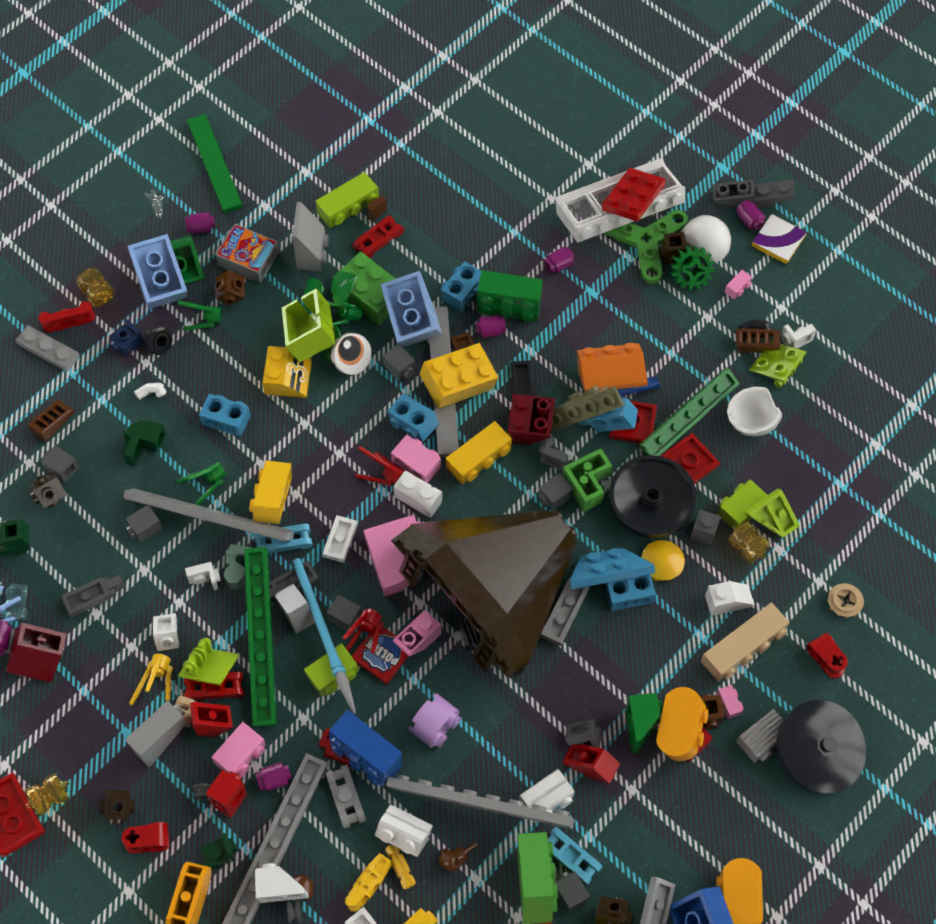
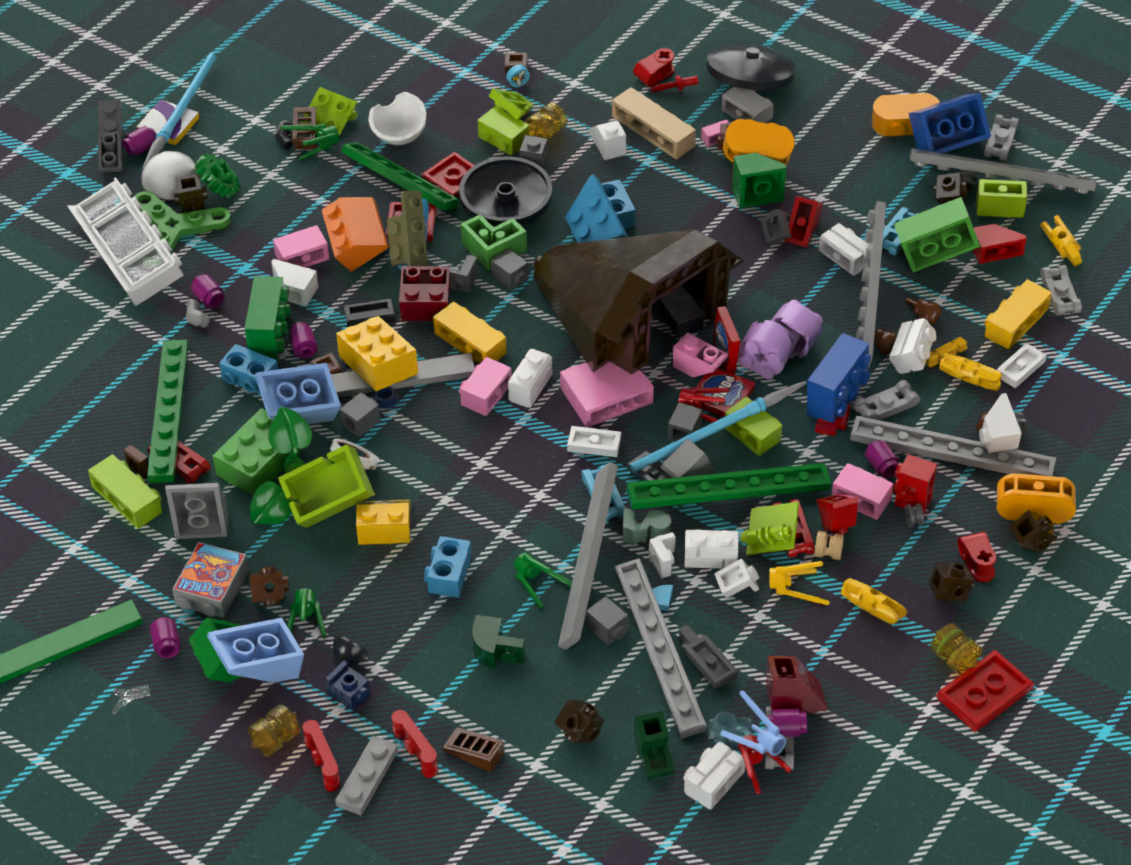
camera: 95 degrees left, 15 degrees down
(59, 463) = (538, 721): dark grey brick -> none
(61, 379) = (415, 742): none -> red plate
(113, 562) = (661, 649): none -> light grey tile
(125, 728) = (873, 601): none -> yellow hinge
(155, 891) = (1034, 531): none -> dark brown brick
(156, 733) = (868, 550): light grey slope -> none
(157, 388) = (416, 651): white arm -> none
(164, 570) = (663, 596): none -> medium azure tile
(198, 613) = (710, 548): none -> white brick
(219, 852) = (972, 494): dark green bracket -> none
(271, 492) = (551, 497): yellow brick -> none
(392, 472) = (504, 407): red plant -> none
(413, 690) = (766, 348): none -> lavender brick
(415, 414) = (429, 389): dark azure brick -> none
(417, 385) = (386, 398): none -> dark blue plate
(425, 809) = (884, 340): none -> reddish brown piece
(426, 228) = (168, 412): none -> green plate
(429, 658) = (726, 339): none -> red tile
(535, 251) = (195, 316): none -> light grey arm
(560, 323) = (300, 281): none -> white slope
(600, 327) = (302, 247): none -> bright pink brick
(633, 194) = (127, 216): red plate -> none
(667, 559) = (568, 186): yellow dish -> none
(738, 284) = (230, 149): bright pink piece -> none
(742, 355) = (325, 137): none -> green plant
(759, 233) = (166, 131): none -> medium azure piece
(798, 338) = (295, 97): white bracket -> none
(805, 677) = (680, 83): none -> red piece
(823, 526) = (518, 75): none -> medium azure tile
(849, 530) = (513, 59): none -> tile
(855, 599) = (591, 56): tan gear -> none

